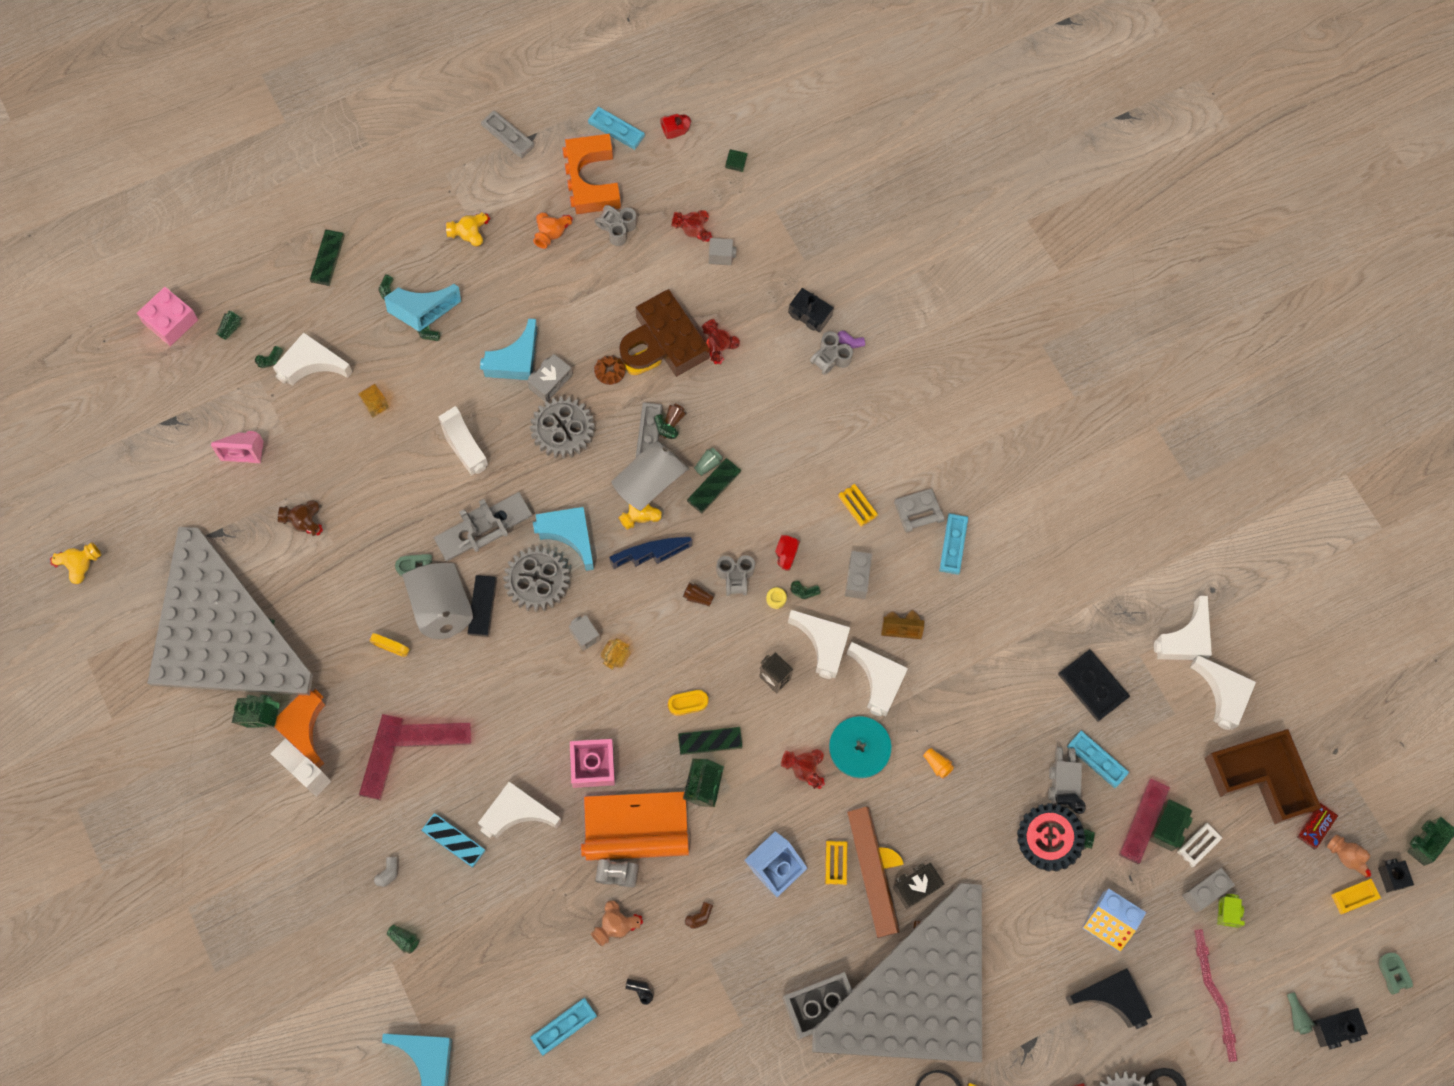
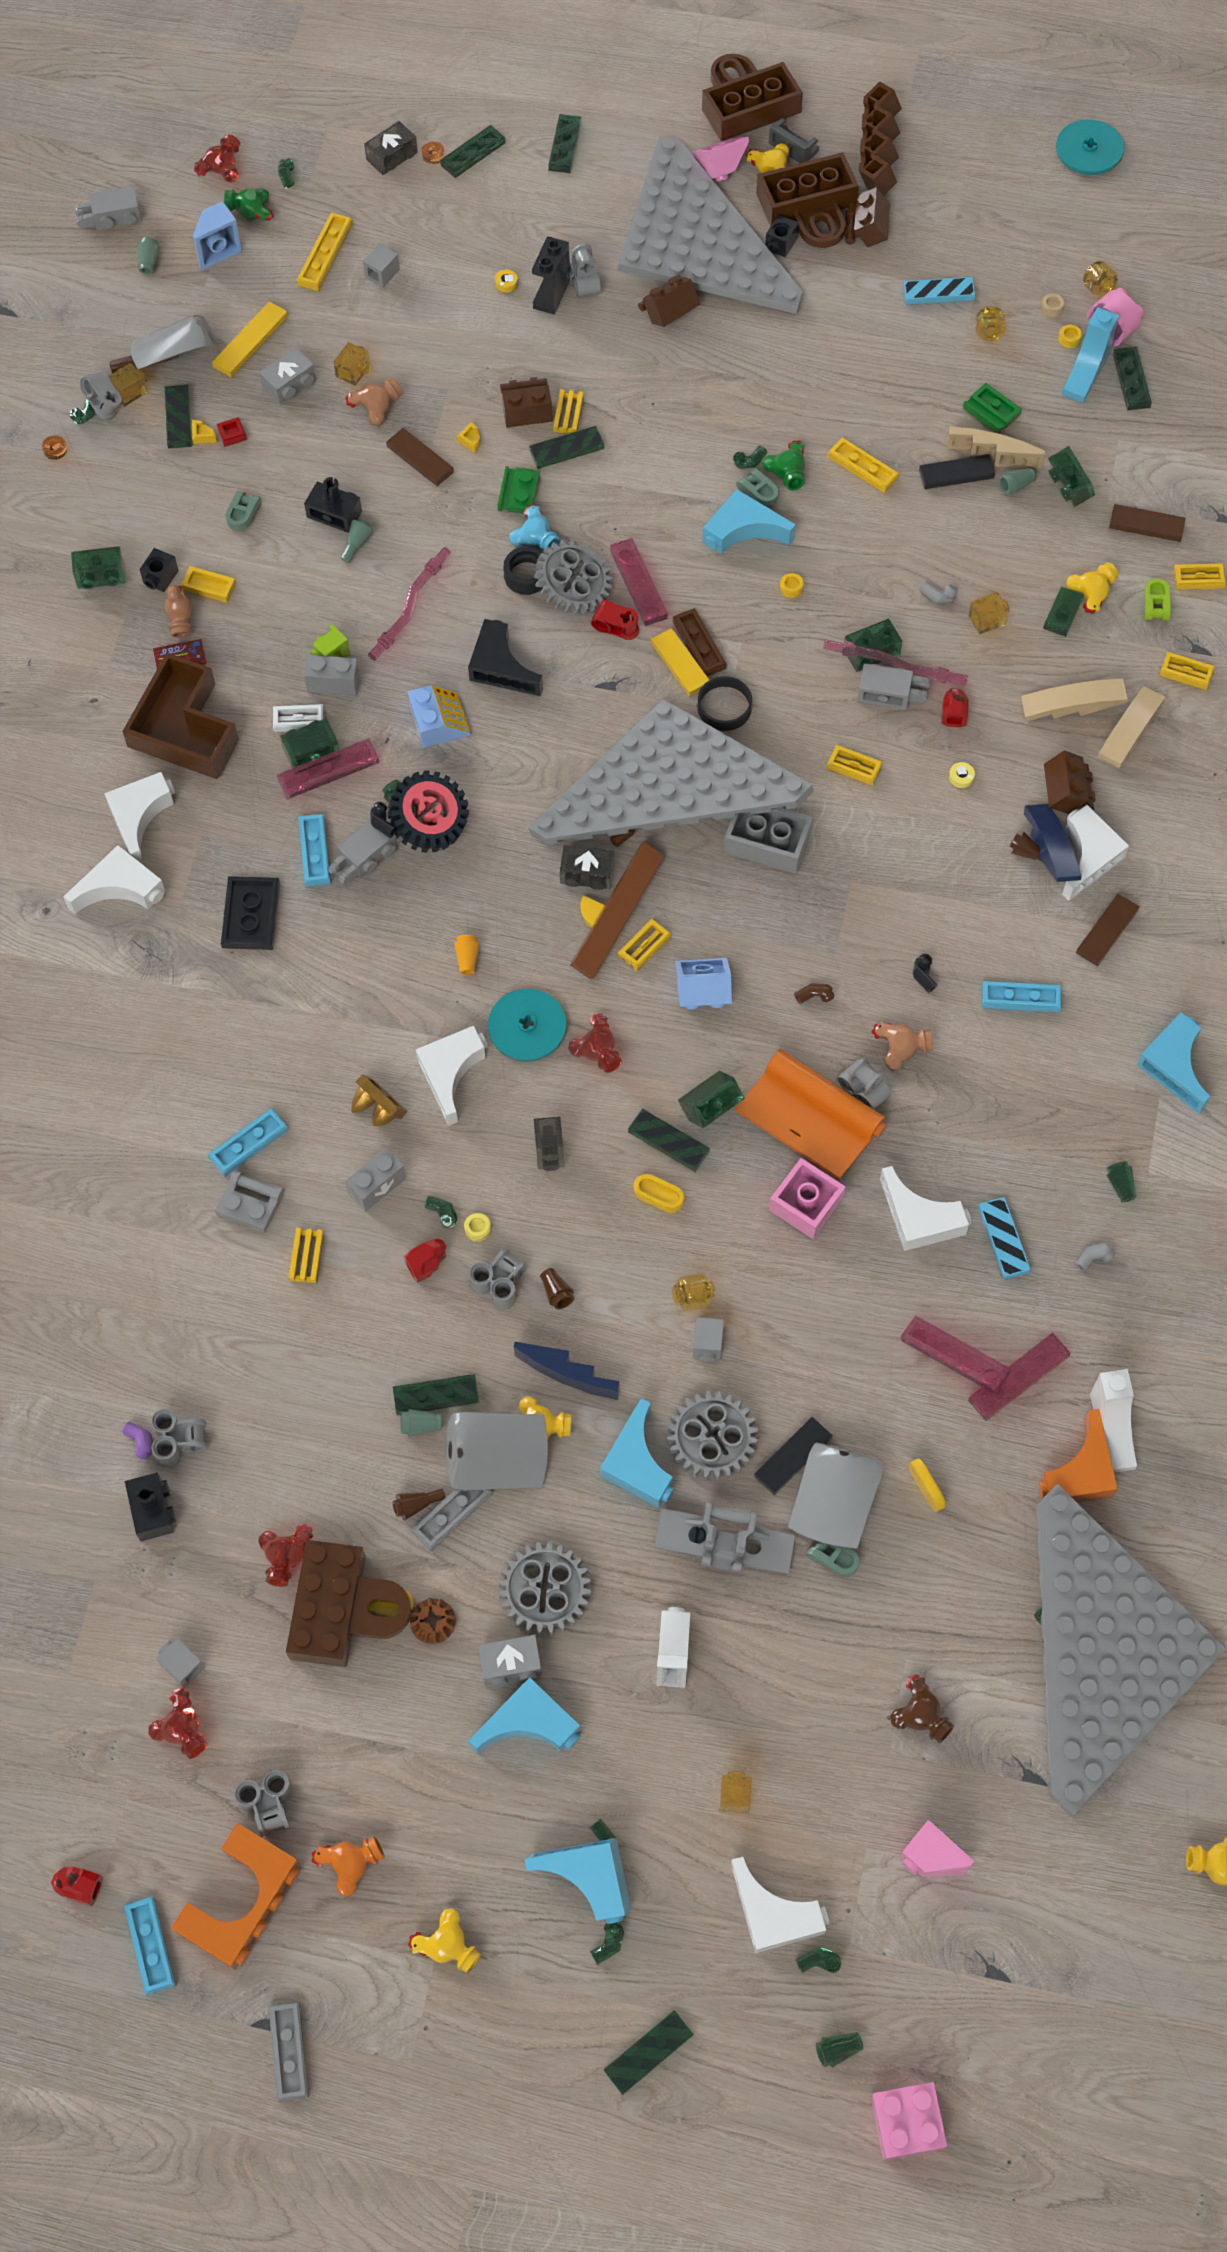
camera: 135 degrees left, 5 degrees down
(256, 711) = (1125, 1512): clear green brick -> none
(665, 429) = (435, 1493): clear green arm -> none
(736, 160) = (50, 1776): clear green tile -> none
(827, 639) = (466, 1140): white arch -> none

